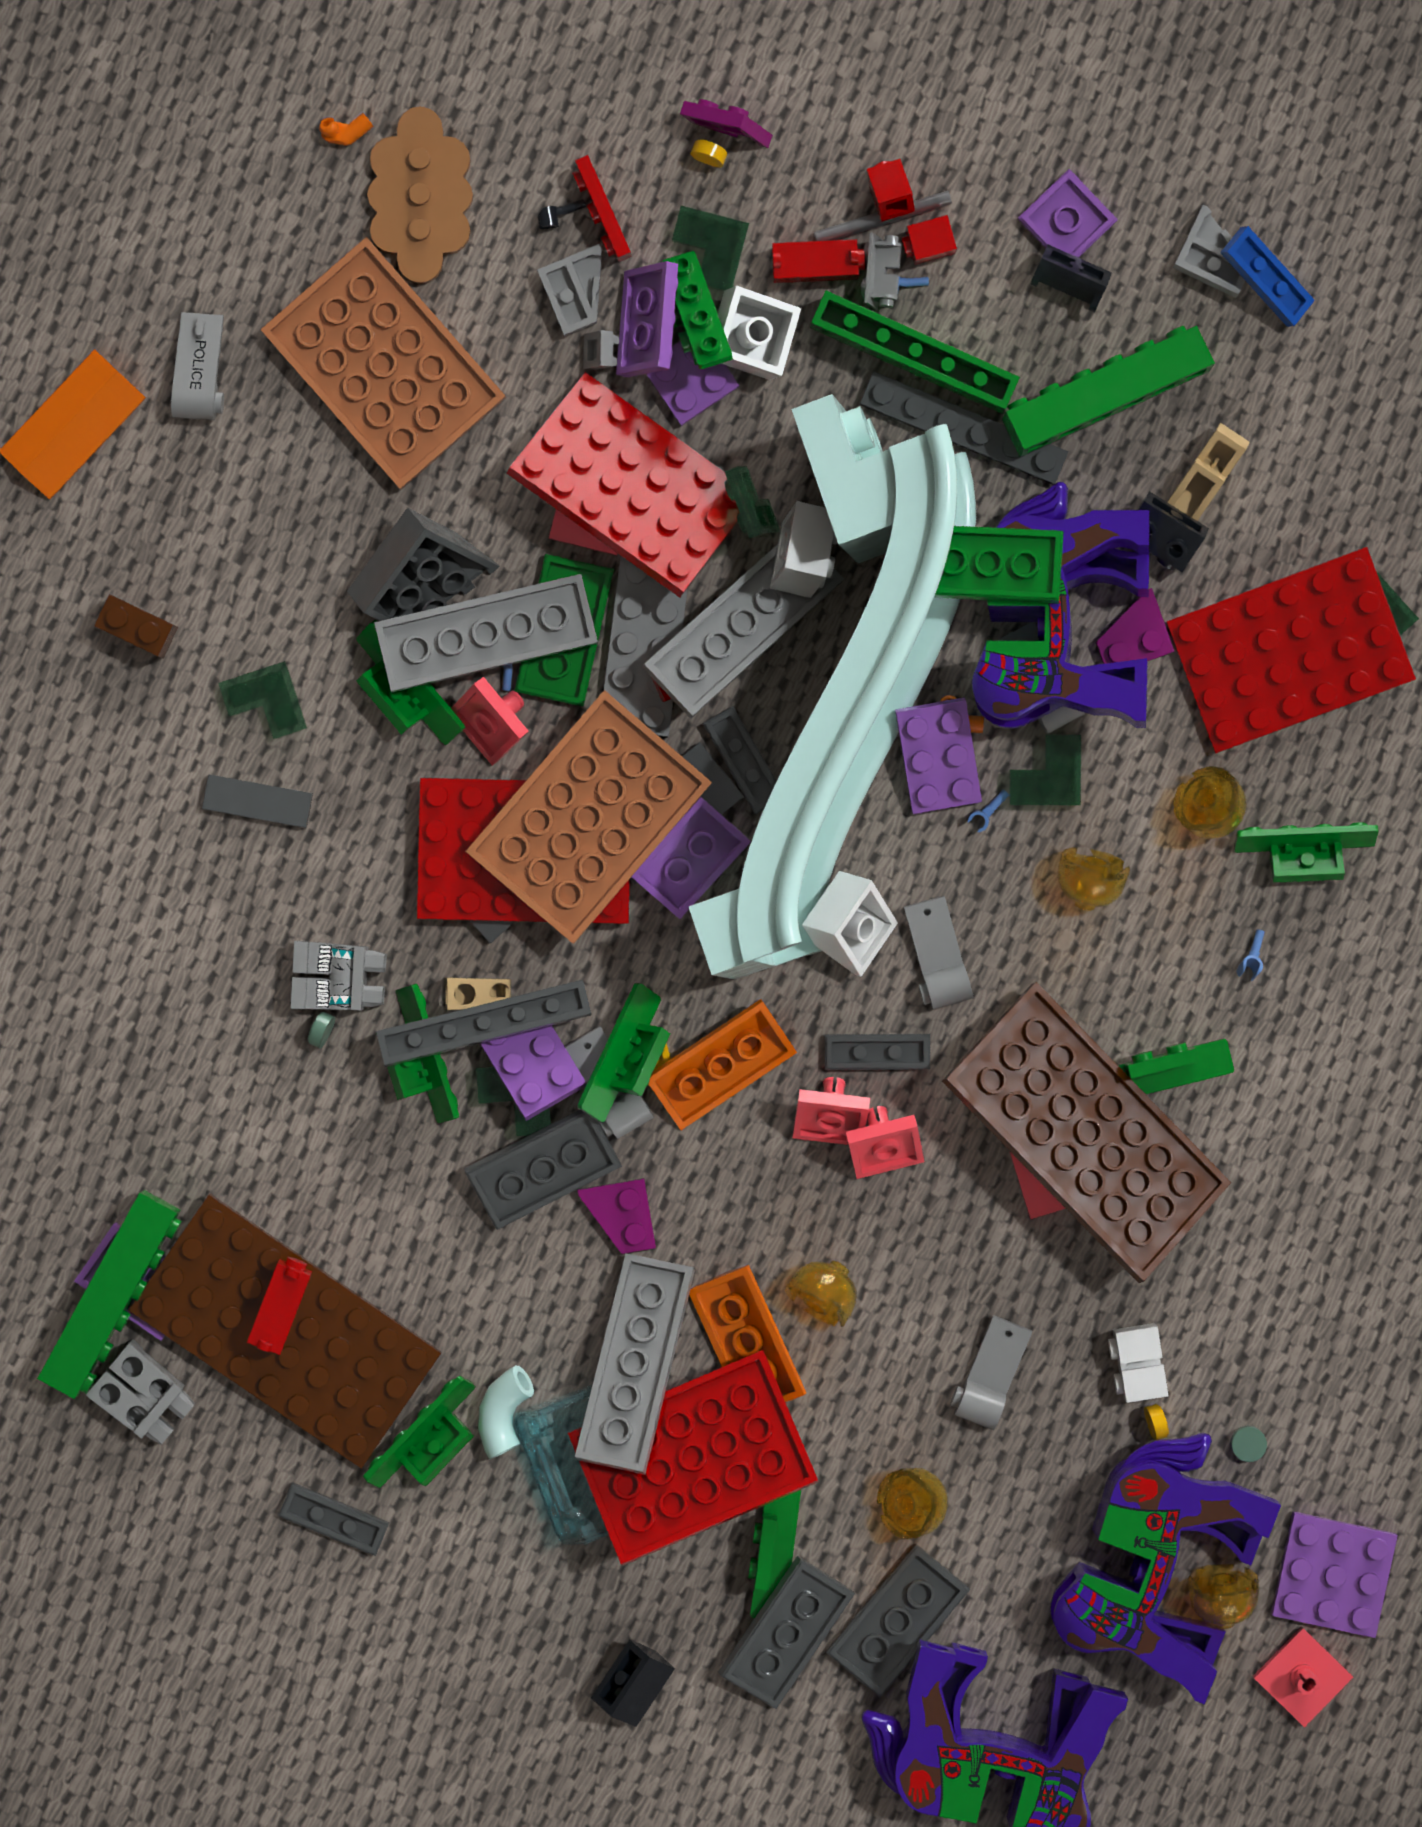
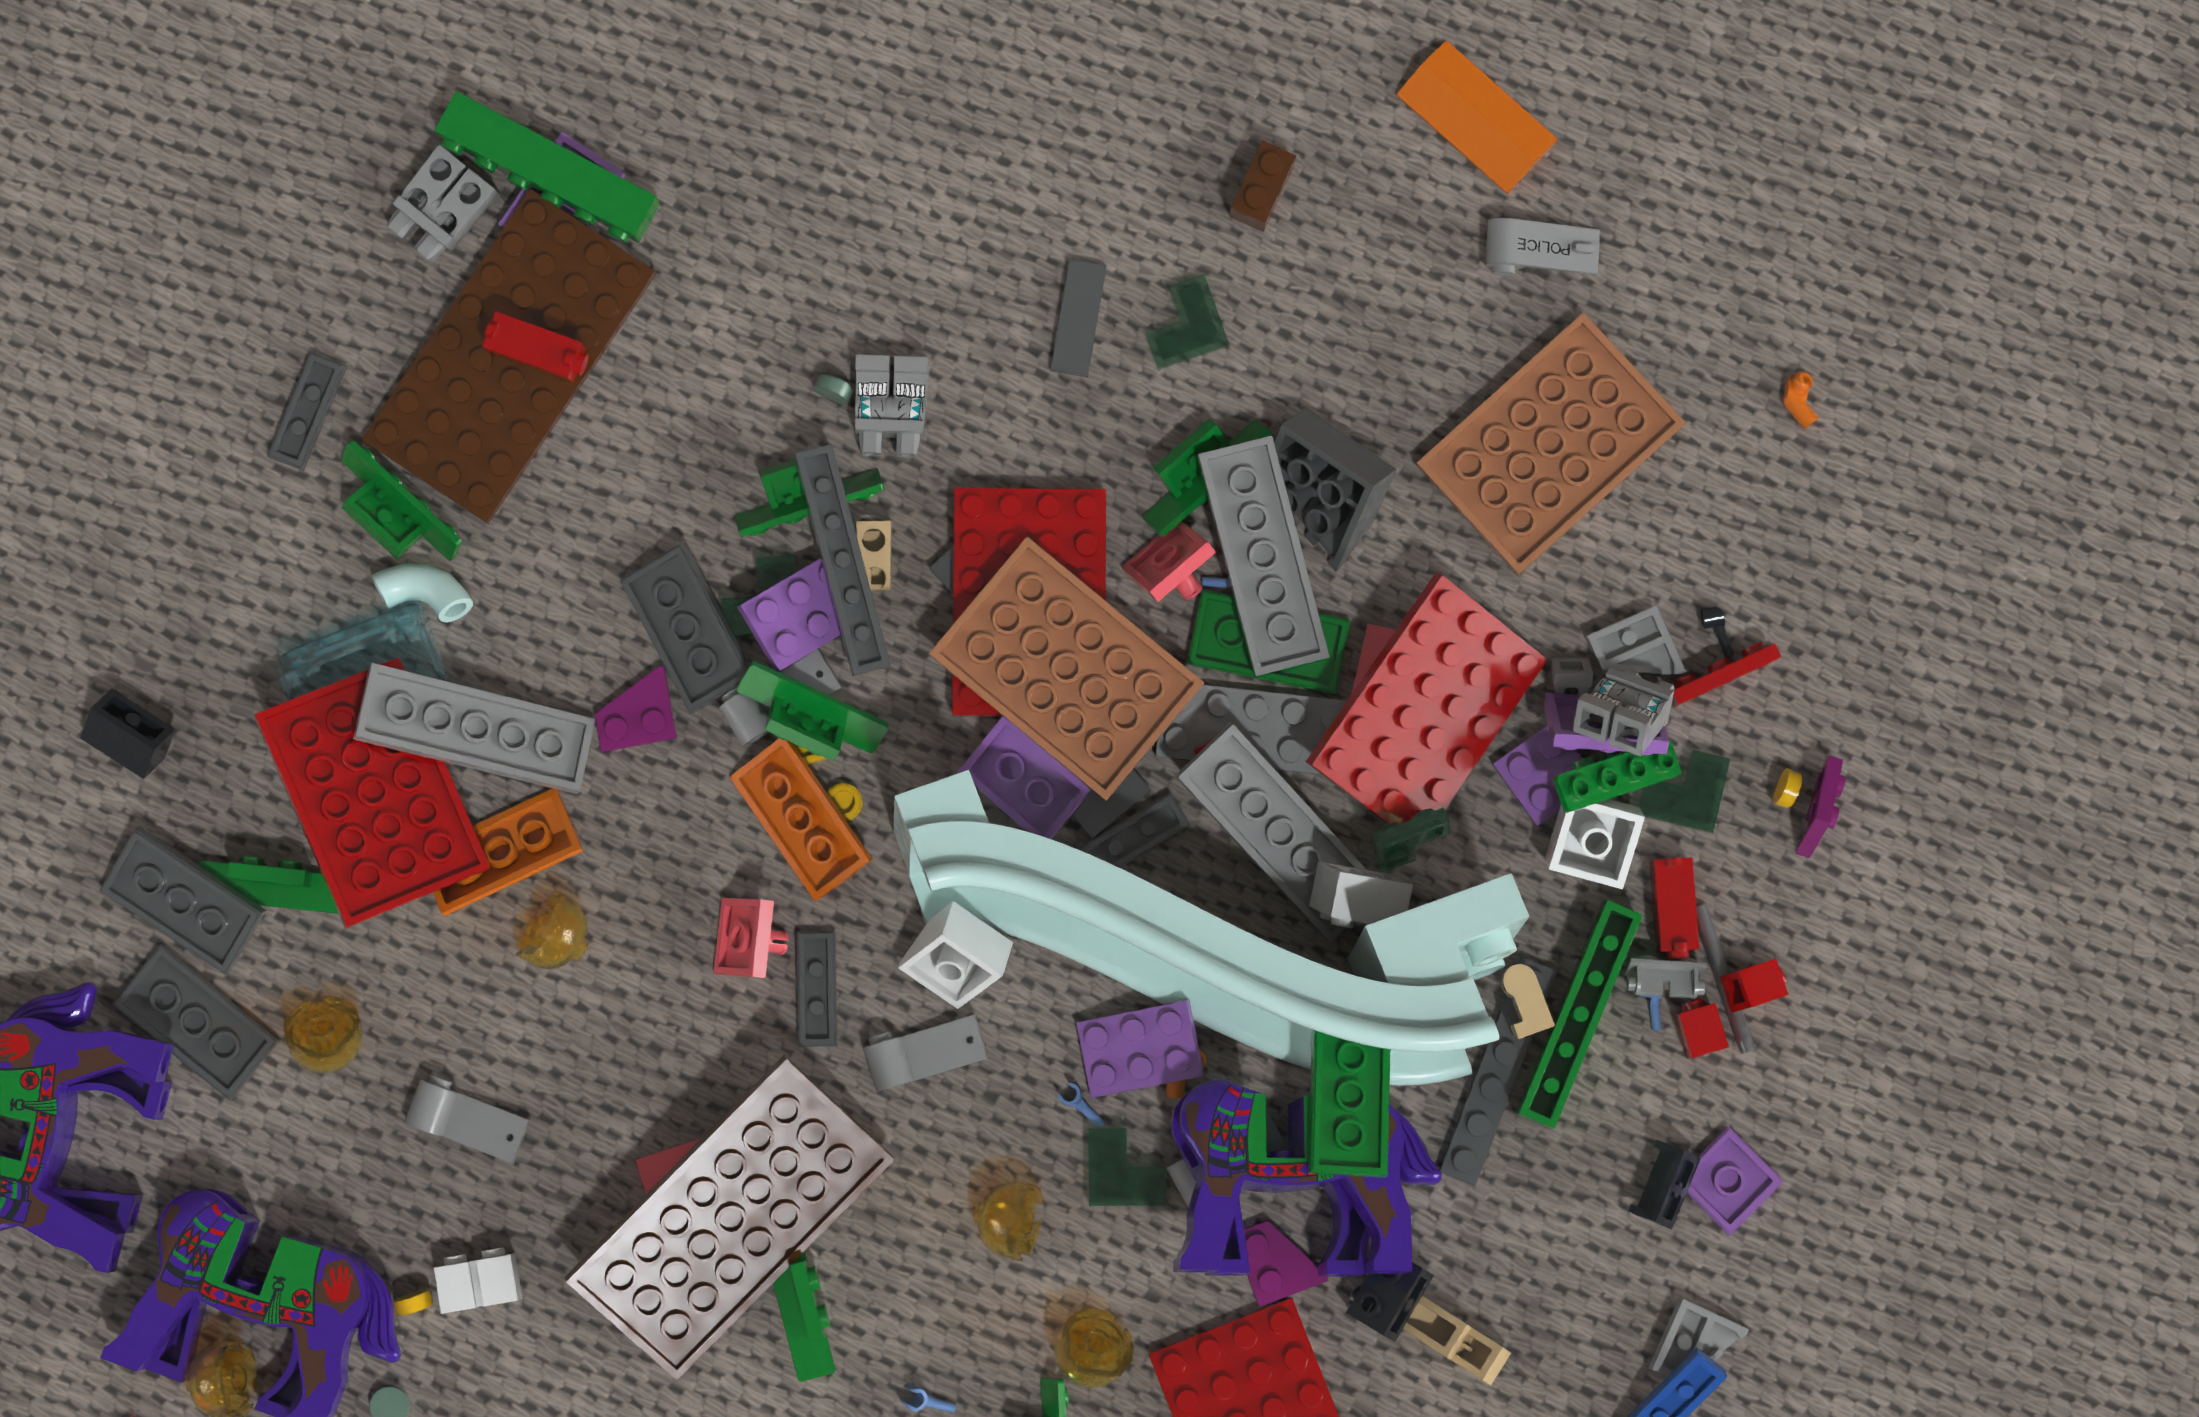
camera: 90 degrees right, 5 degrees down
(420, 195) = (1732, 480): medium nougat plate -> none
(634, 300) = (1625, 707): none -> light grey hips
(704, 1022) = (847, 800): none -> yellow tile
(884, 1144) = (715, 996): coral tile -> none
(901, 398) = (1528, 1000): none -> tan leg
(1108, 390) = (1542, 1227): green brick -> none

